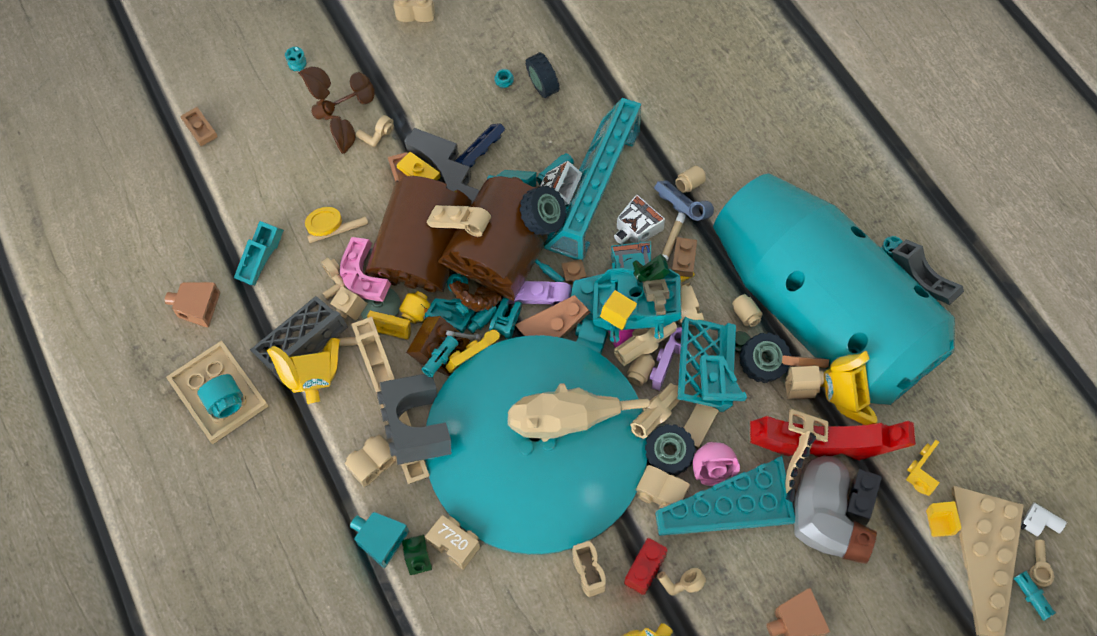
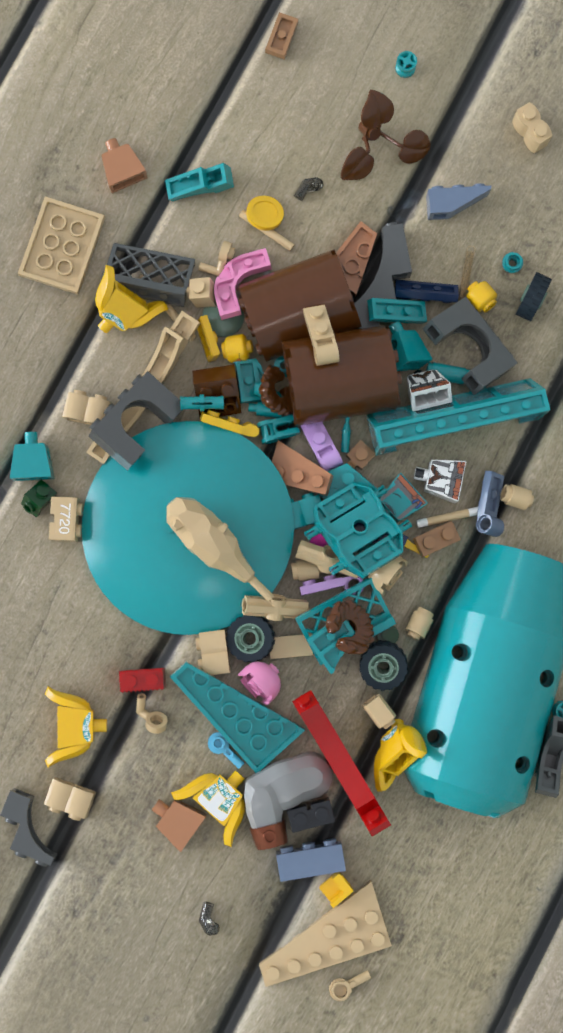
camera: 50 degrees right, 20 degrees up
(221, 396) = (52, 256): teal piece -> none
(329, 178) = (308, 185): none -> clear smoke arm
(383, 127) = (388, 194): tan plate -> none
(414, 166) = (364, 257): yellow plate -> none
(422, 92) = (447, 202): none -> sand blue slope
(475, 337) = (227, 396): light grey hinge -> none
(477, 105) = (464, 281): none -> tan piece
(478, 172) = (397, 310): none -> teal plate
(513, 112) = (482, 296): none -> yellow head
(523, 132) = (465, 319): none -> dark grey arch
(543, 210) = (381, 398): black wheel -> none
(591, 573) = (106, 644): tan brick -> none
(618, 309) = (329, 524): yellow panel -> none
(653, 270) = (386, 527): dark green bracket -> none
(658, 292) = (367, 545): dark tan plate -> none
(712, 346) = (358, 620): none -> reddish brown piece
(748, 538) = (219, 745): none -> medium azure plate
(800, 568) = (219, 799): none -> yellow torso
(803, 449) = (319, 746): tan piece -> none
(805, 361) = (399, 701): nougat tile -> none
(904, 524) = (310, 860): none -> sand blue brick
(918, 478) = (356, 855): yellow bracket -> none
(1034, 595) = (318, 992): teal pin -> none
(1038, 517) = (388, 963): white piece -> none

